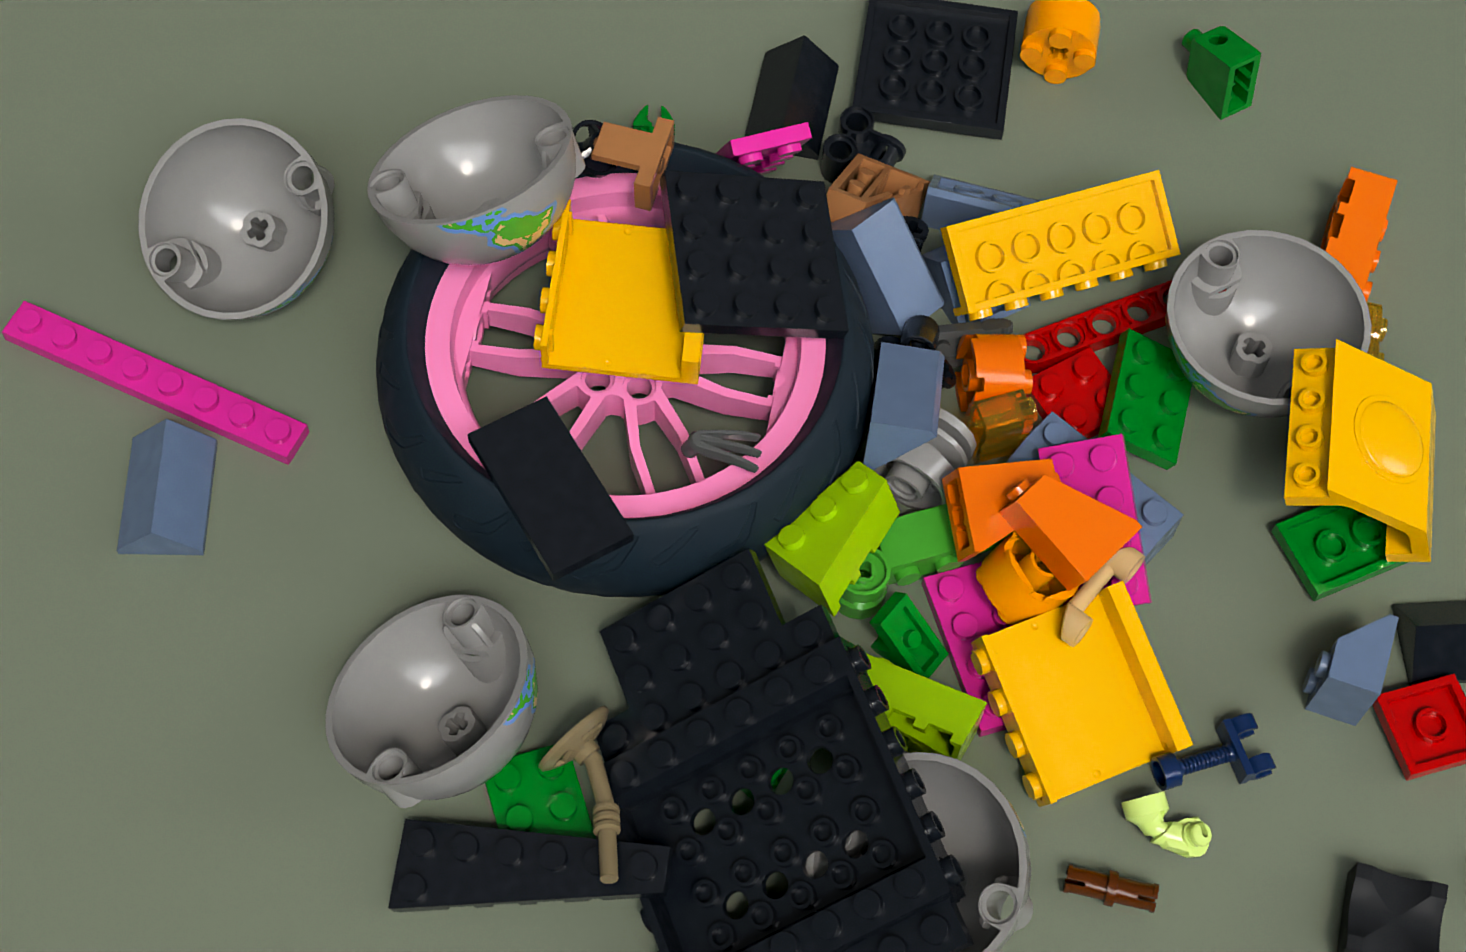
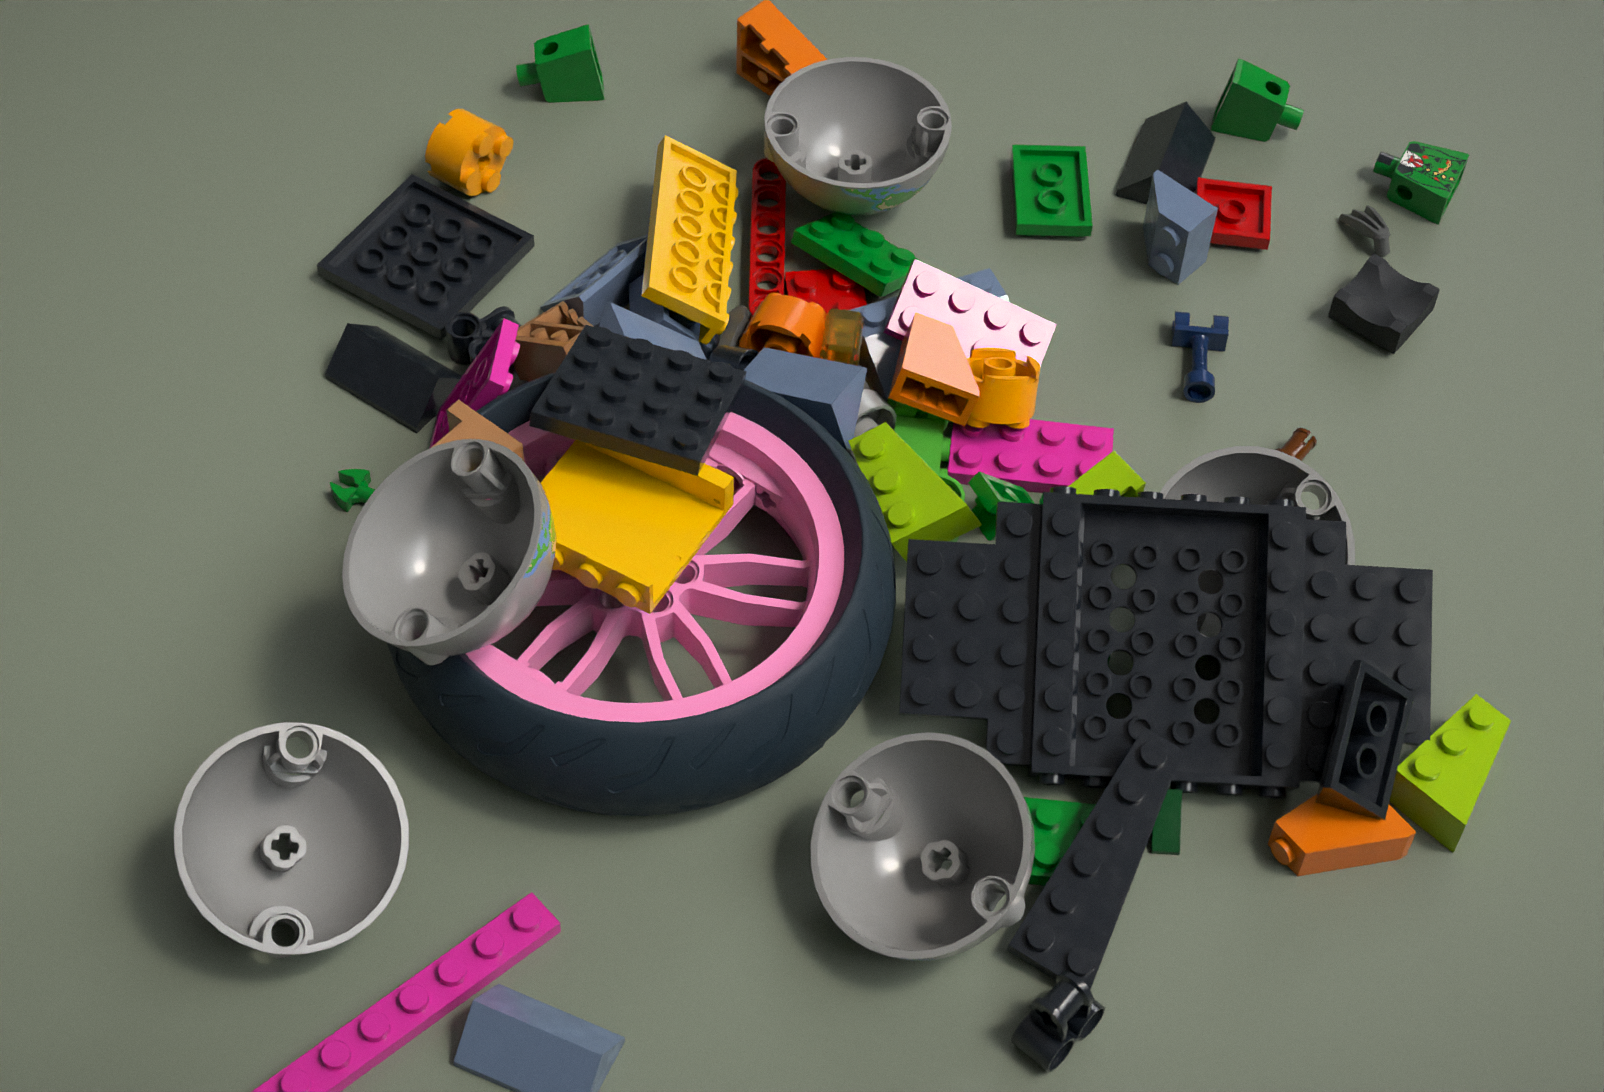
camera: 65 degrees left, 10 degrees down
(343, 891) = (1058, 1021): none -> black piece
(550, 488) = (787, 648): black tile -> none
(580, 746) = (1021, 760): dark tan dish -> none
(608, 919) = (1167, 828): none -> dark green piece
(715, 446) = (810, 512): dark grey piece -> none
(1067, 528) = (991, 327): orange slope -> none
(1077, 623) = (1061, 372): tan bar -> none
(1080, 708) = (1108, 396): yellow panel -> none
(1184, 837) = (1257, 402): yellowish green arm -> none
(1363, 443) = (1005, 119): yellow panel -> none

